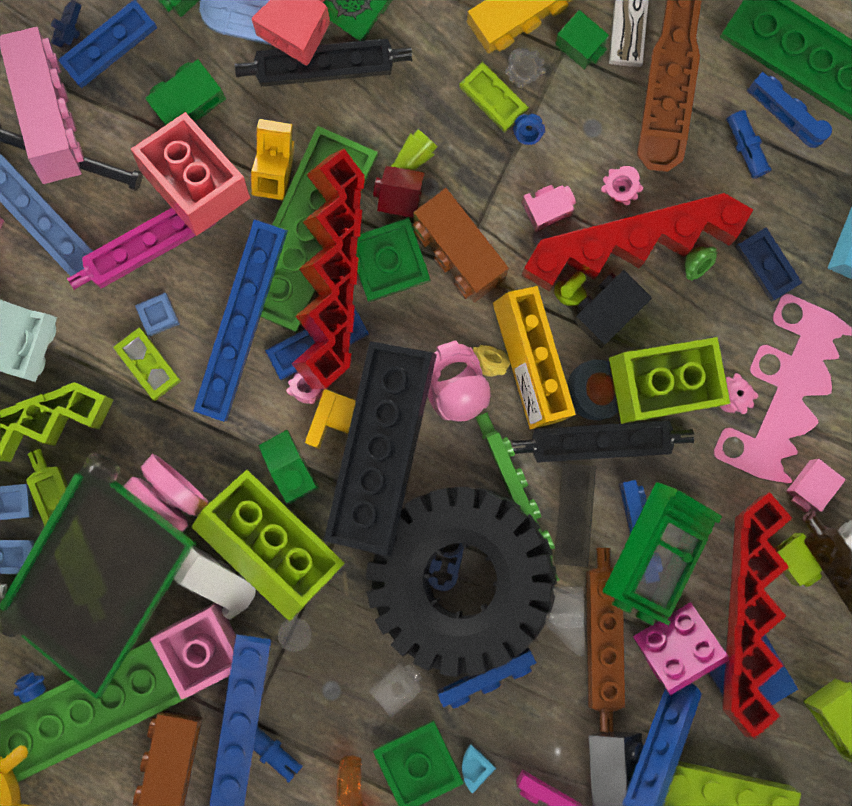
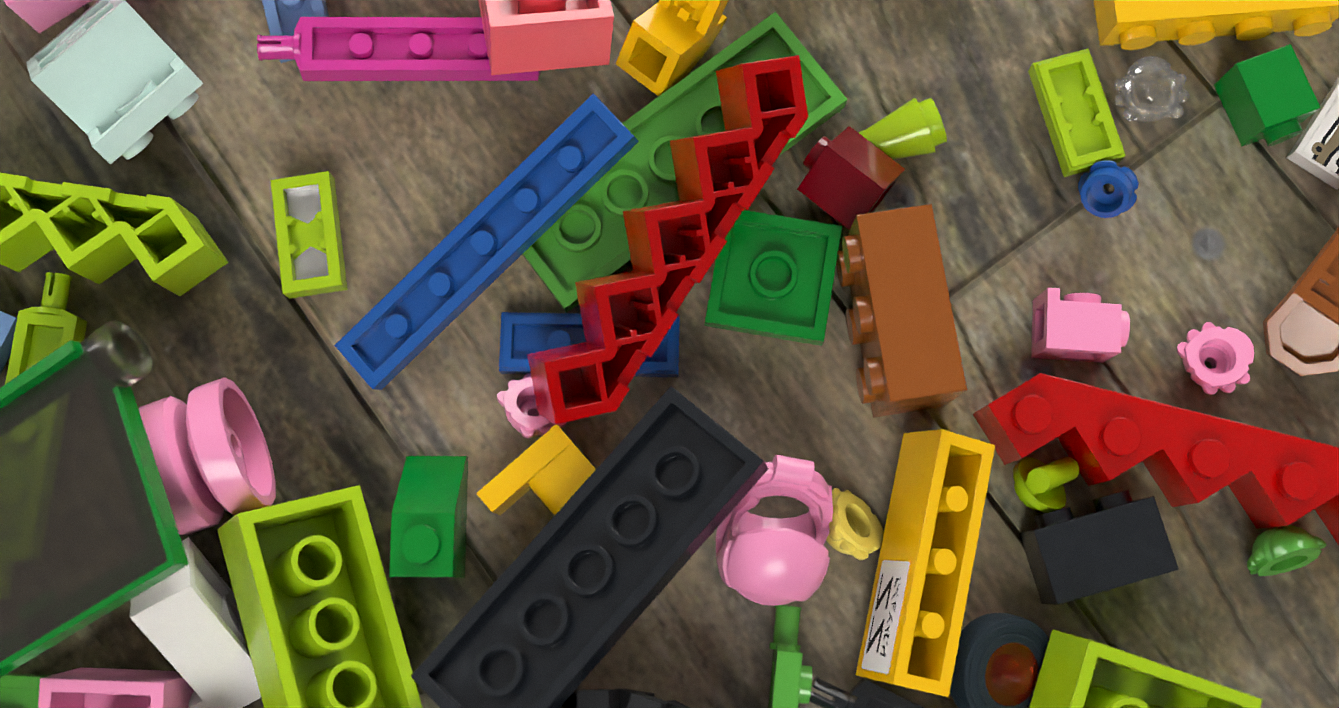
camera: 30 degrees right, 5 degrees down
(157, 314) = (370, 169): medium blue tile -> none

